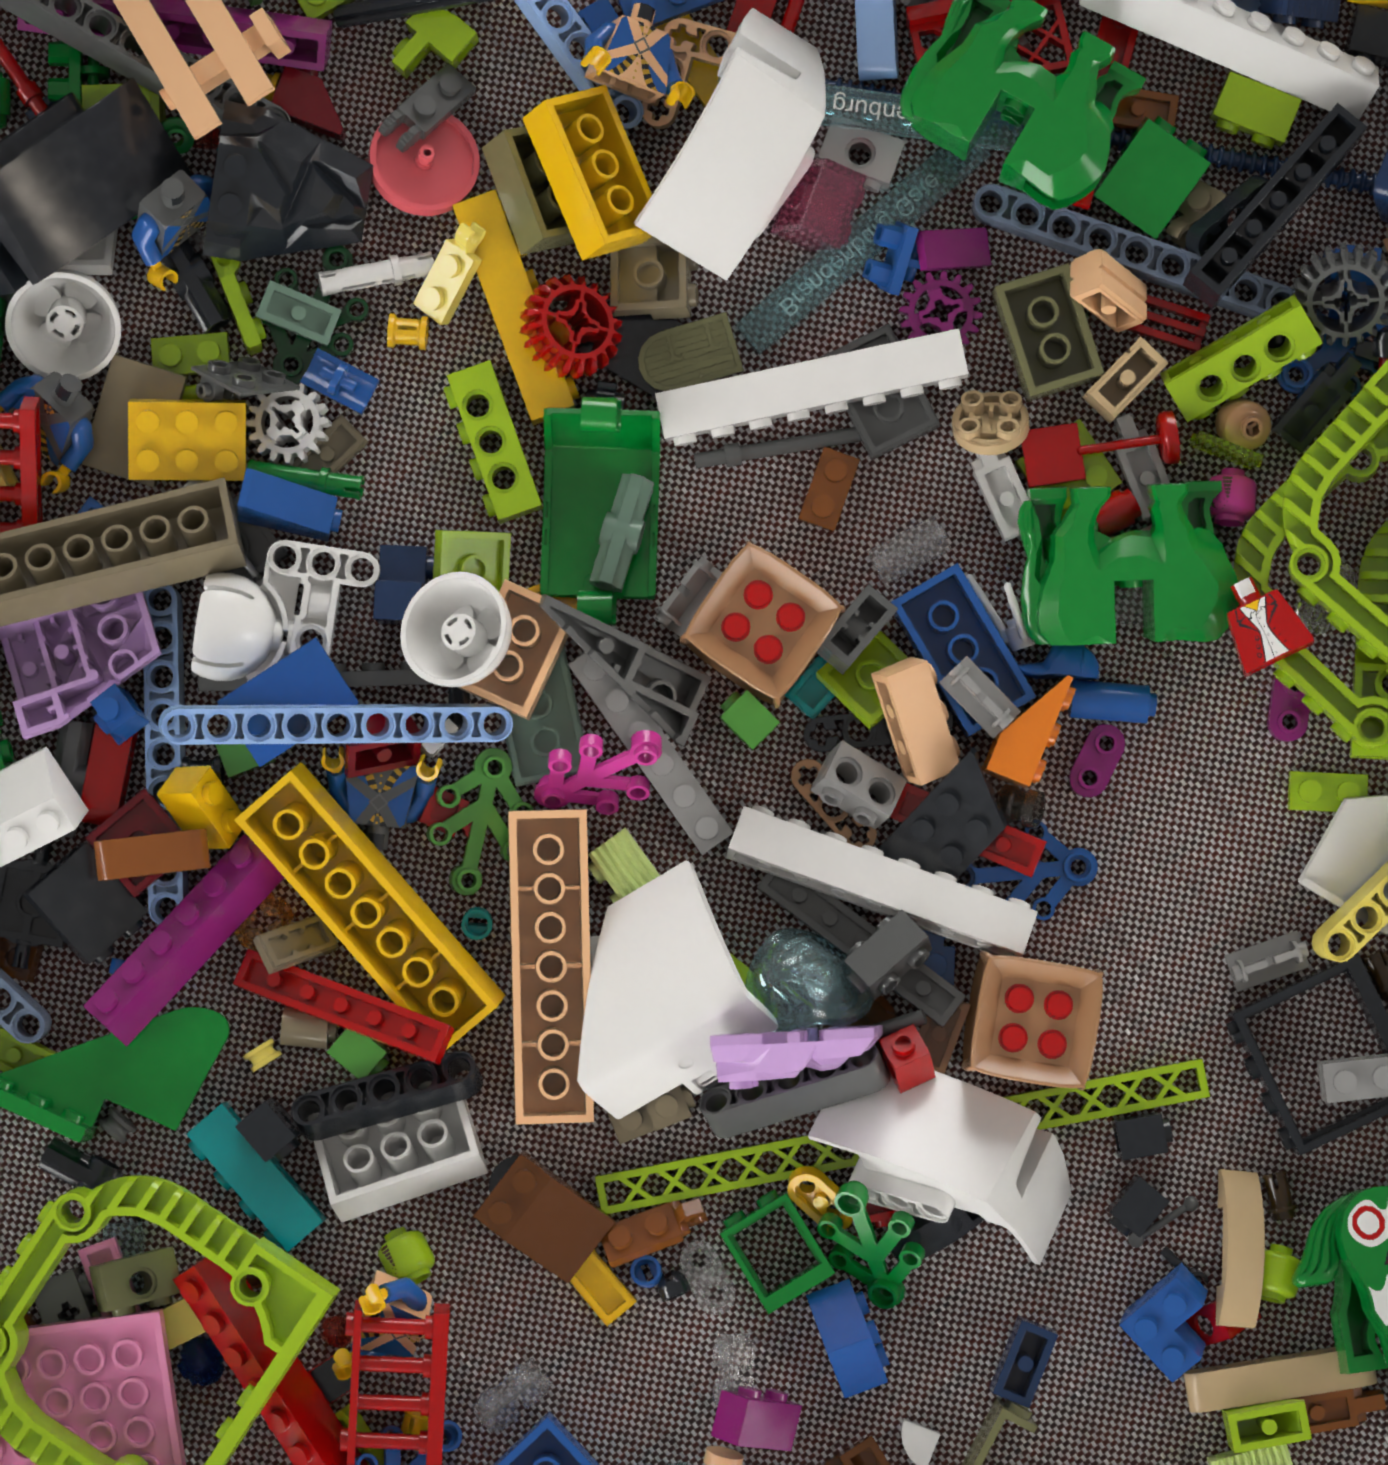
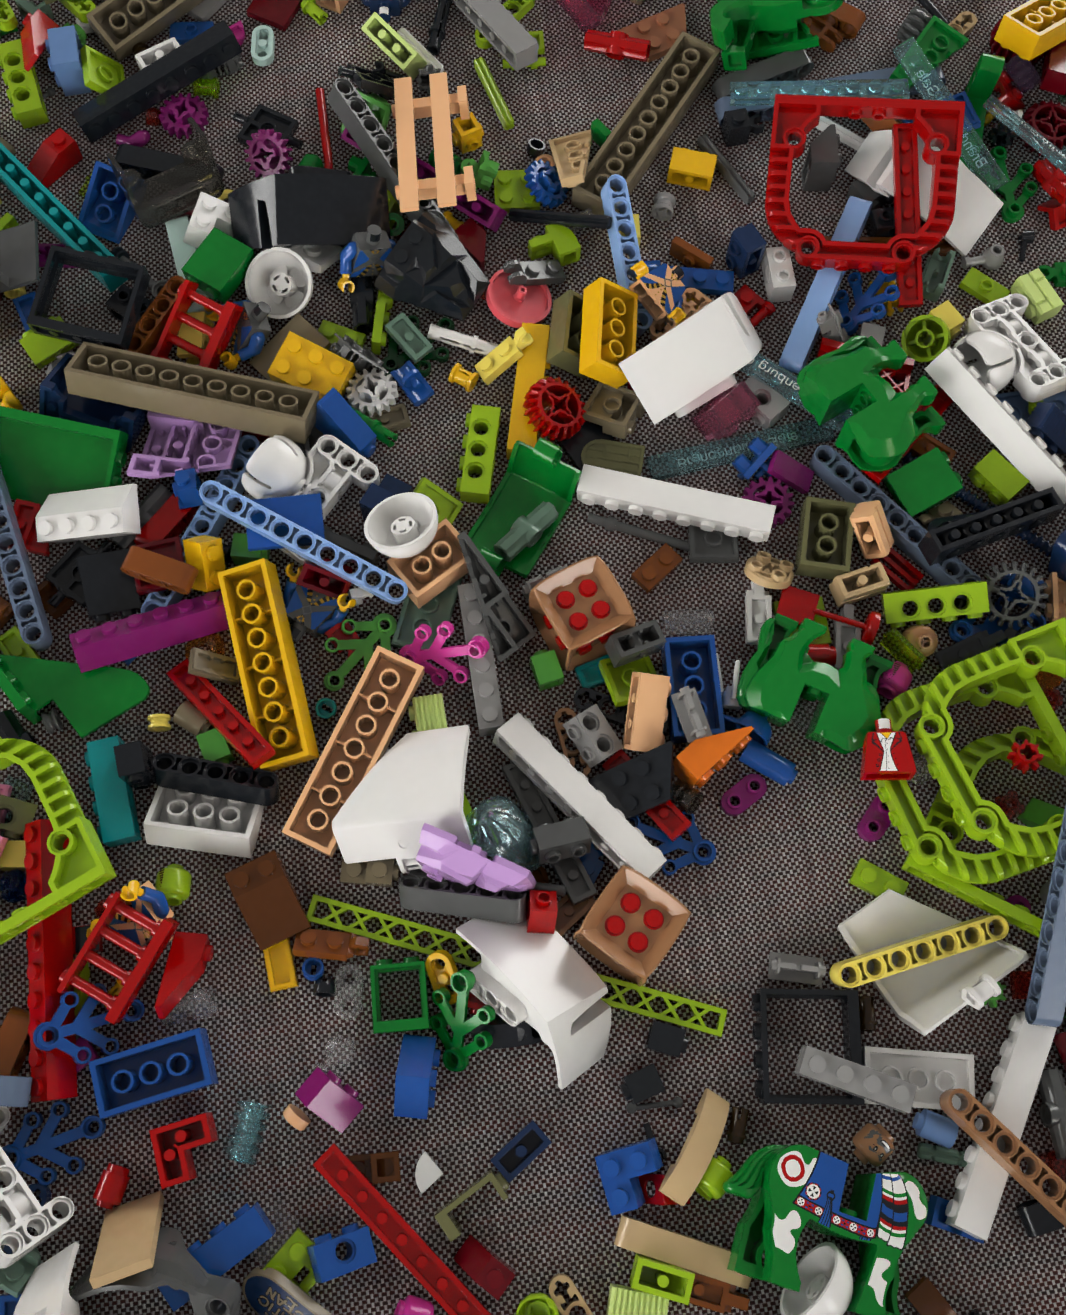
camera: 20 degrees right, 15 degrees down
(483, 1352) = (183, 968): none -> red slope

